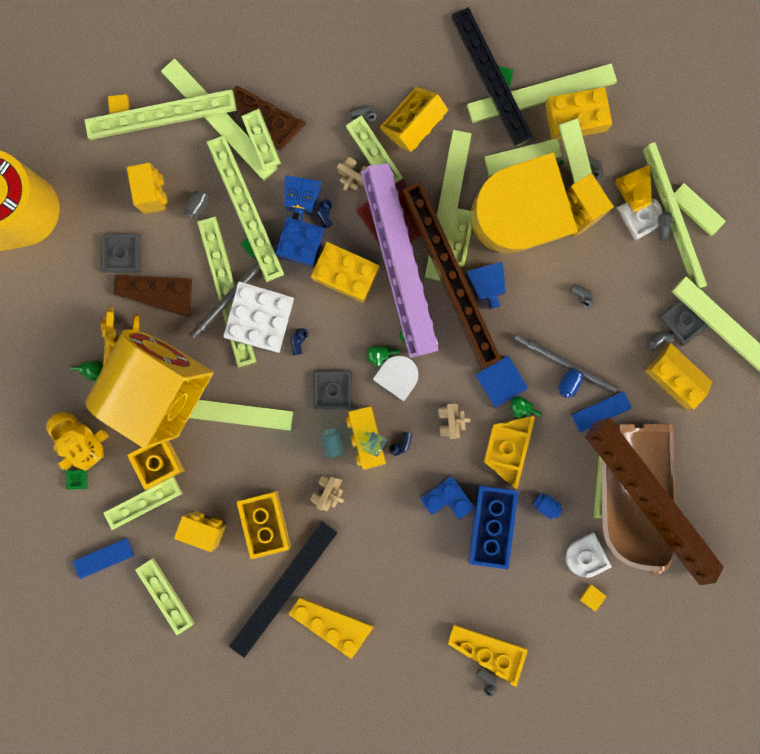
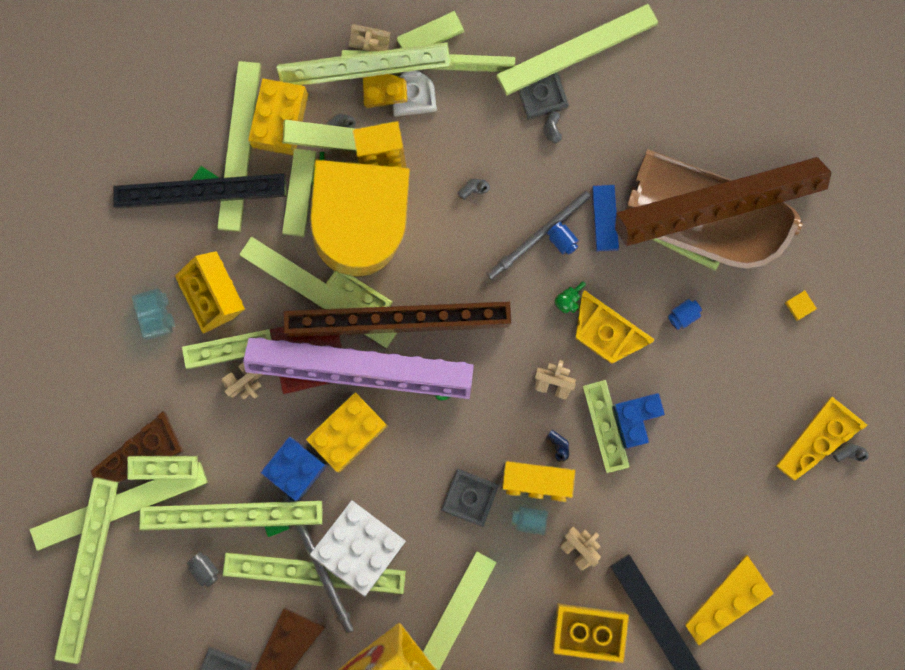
camera: 60 degrees left, 5 degrees down
(118, 103) = (53, 613): yellow tile -> none
(147, 188) = (163, 617): yellow brick -> none
(297, 339) = (398, 514): dark blue arm -> none
(301, 196) = (243, 448): blue torso -> none
(323, 213) = (268, 429): dark blue arm -> none
(366, 112) = (179, 341): dark grey arm -> none
(374, 443) = (549, 473): clear light blue tile -> none
(377, 354) = (450, 432): green piece -> none
(378, 81) = (152, 313): none -> clear light blue brick
(398, 376) = (483, 419): white tile -> none
(431, 476) = (606, 426): none -> yellowish green plate
(487, 283) = (421, 283): blue torso -> none
(492, 526) = (685, 381): blue brick -> none
(501, 381) = (532, 310): blue tile -> none
(586, 556) = (754, 294): white tile -> none
(650, 166) = (365, 64): none -> yellowish green tile
(664, 226) = (435, 75): dark grey arm -> none
(673, 160) = (369, 38): none -> tan hips
(679, 377) = (600, 122): yellow slope -> none

